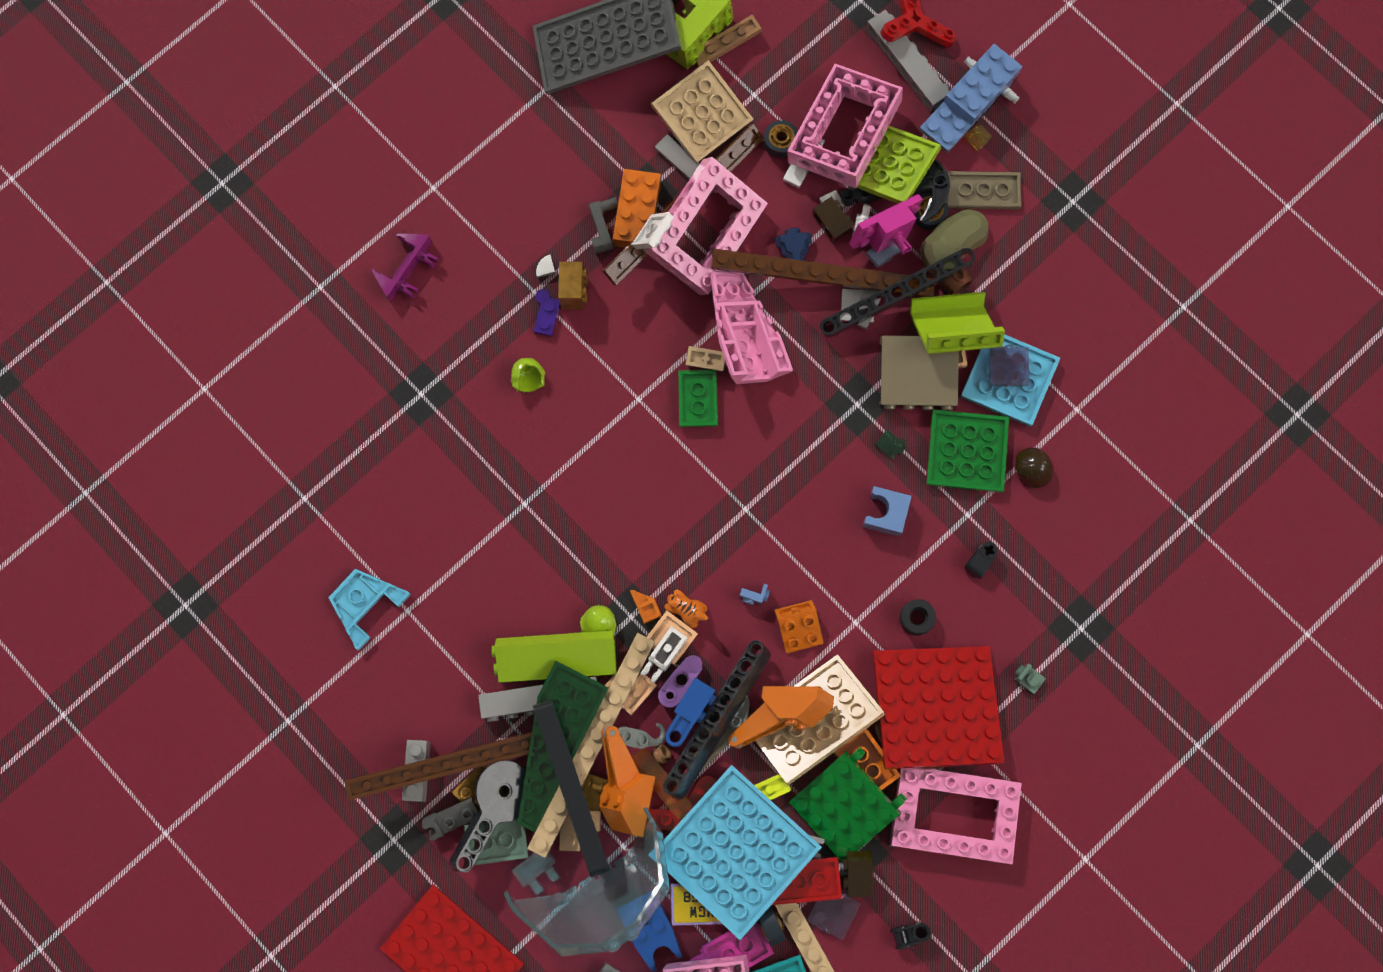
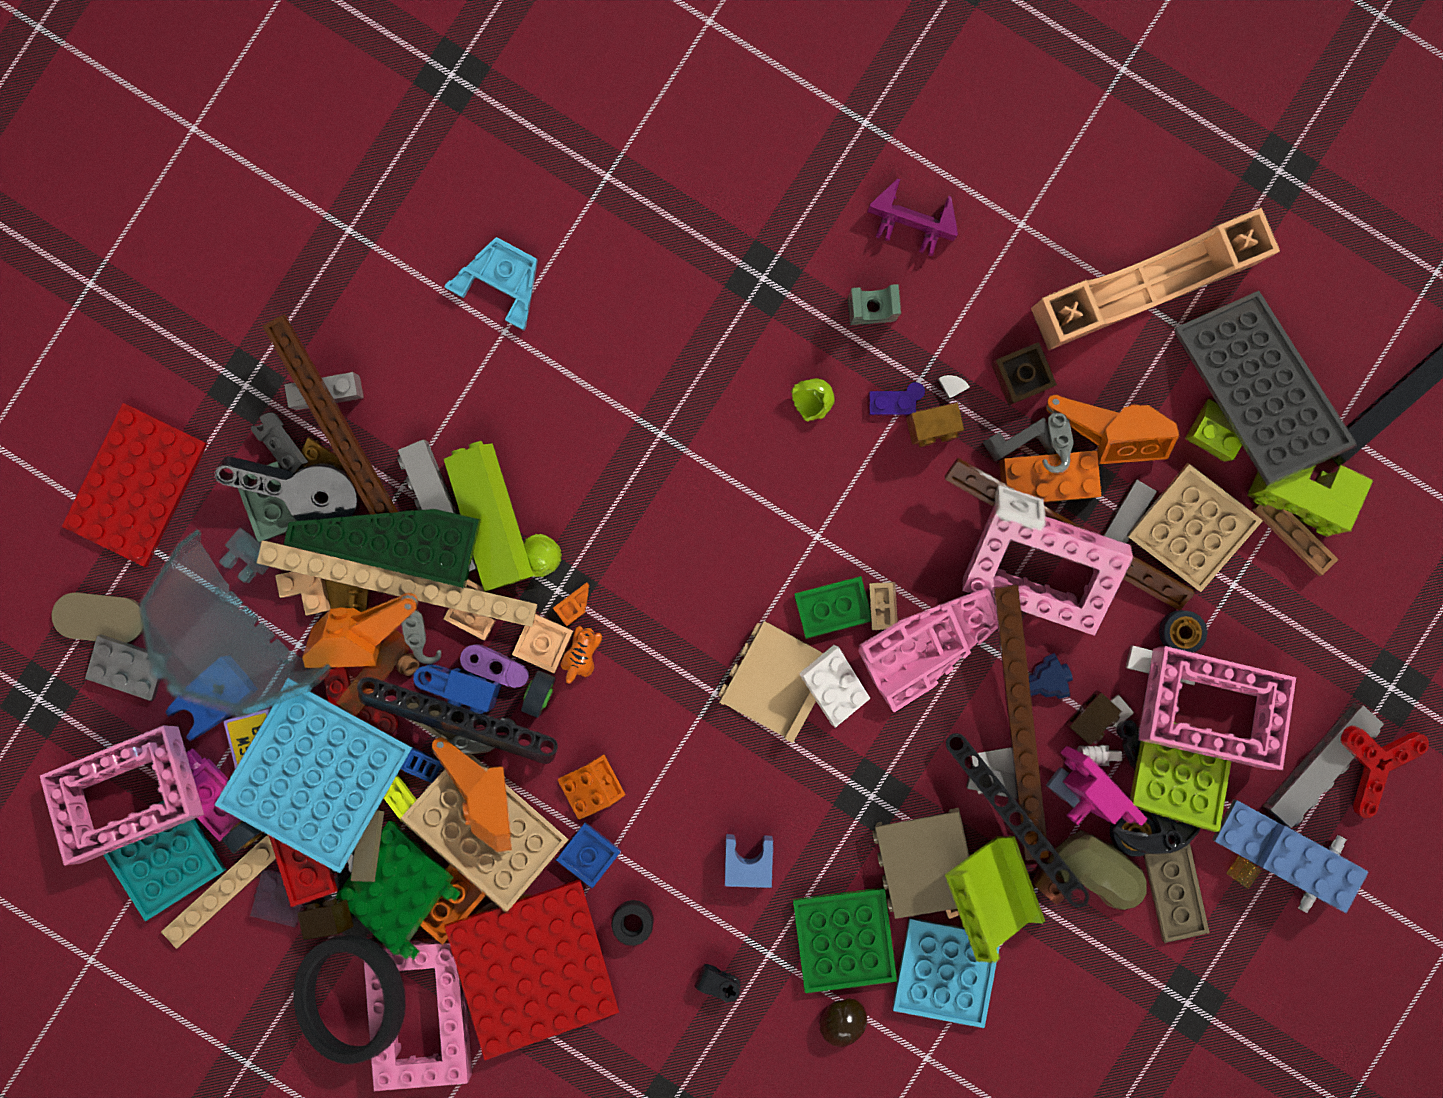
camera: 75 degrees right, 10 degrees up
(466, 299) = (886, 299): none -> sand green piece
(504, 98) = (1155, 280): none -> light nougat arch
(550, 210) = (1023, 374): none -> dark brown brick
(571, 788) = (337, 573): black beam -> none
(618, 148) = (1126, 436): none -> orange slope
(633, 81) = (1214, 433): none -> lime slope
(665, 652) = (519, 643): white hinge -> none
(711, 649) = (538, 694): none -> black wheel
(746, 754) = (415, 770): none -> blue slope
(747, 456) = (769, 683): none -> tan panel
(750, 597) = (610, 724): medium blue bracket -> none
(760, 409) = (834, 685): none -> white plate
(813, 825) = (367, 851): none -> dark tan tile
(854, 641) = (588, 855): none -> blue plate
(891, 444) = (831, 848): clear green bracket -> none
(909, 935) = (276, 987): black piece -> none
(921, 908) = (306, 1006): none -> black tyre
(1009, 366) = (957, 971): clear purple plate -> none
(1029, 678) = (593, 1065): sand green bracket -> none

